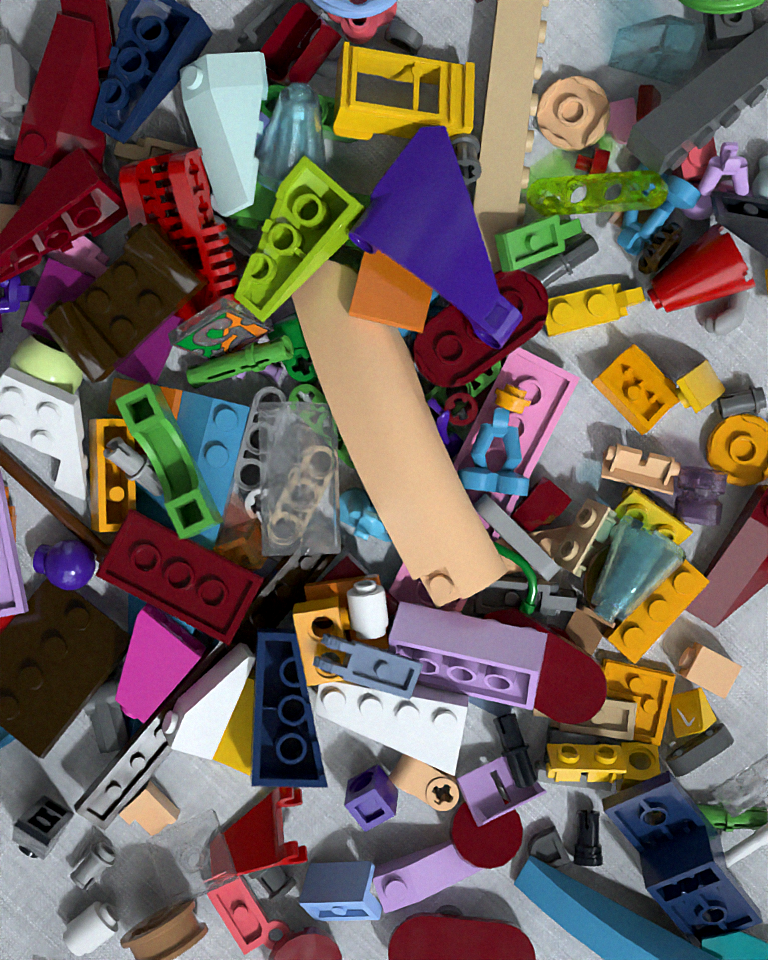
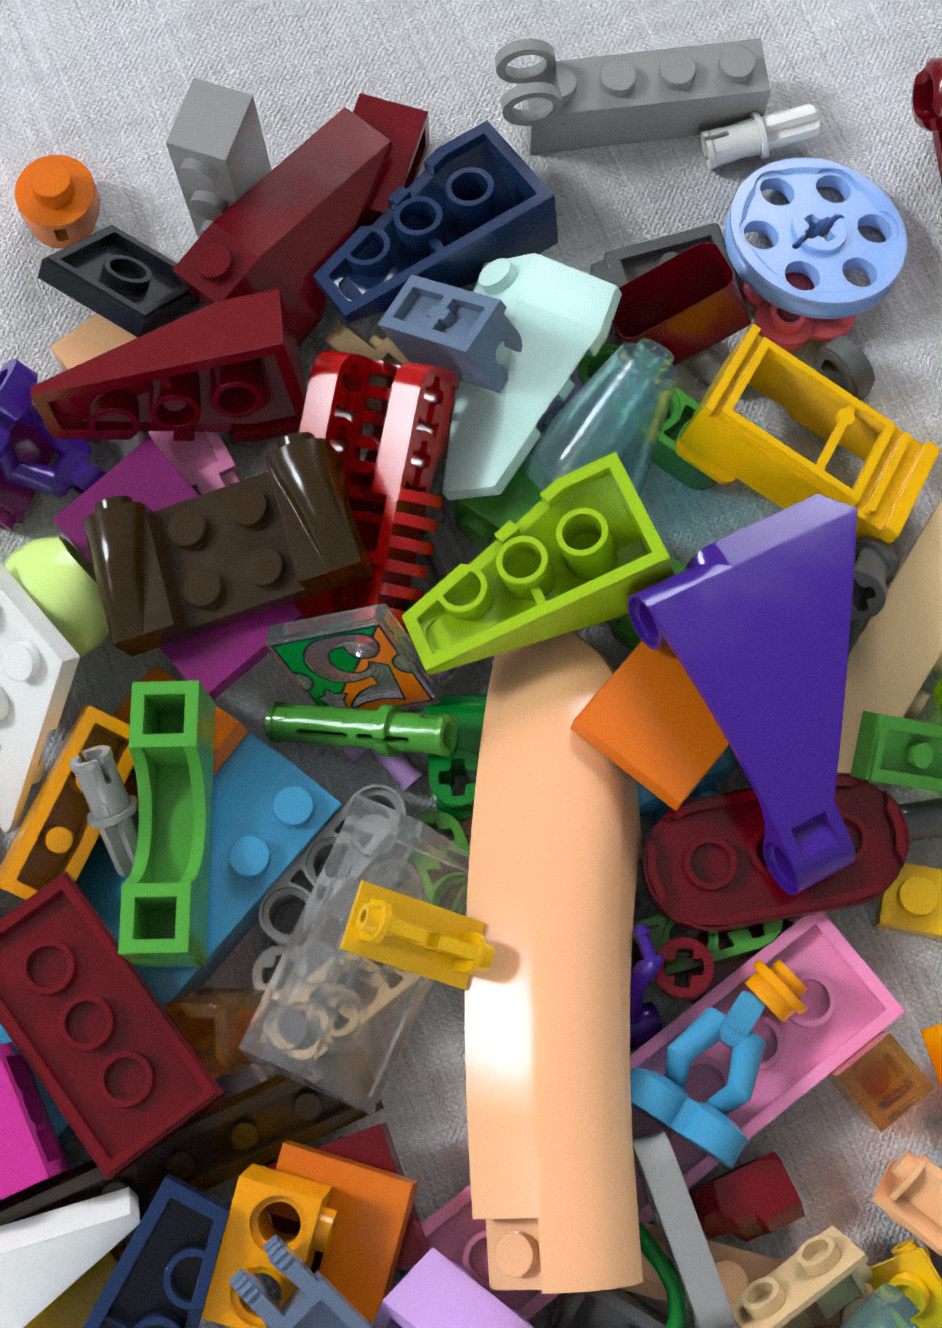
camera: 25 degrees right, 15 degrees down
(182, 123) = (451, 330): none -> sand blue hinge
(322, 460) = (416, 936): none -> yellow hinge
(359, 512) = (436, 1067): medium azure piece -> none
(367, 609) = (370, 1232): white brick -> none
(582, 418) = (880, 1082): none -> clear orange brick

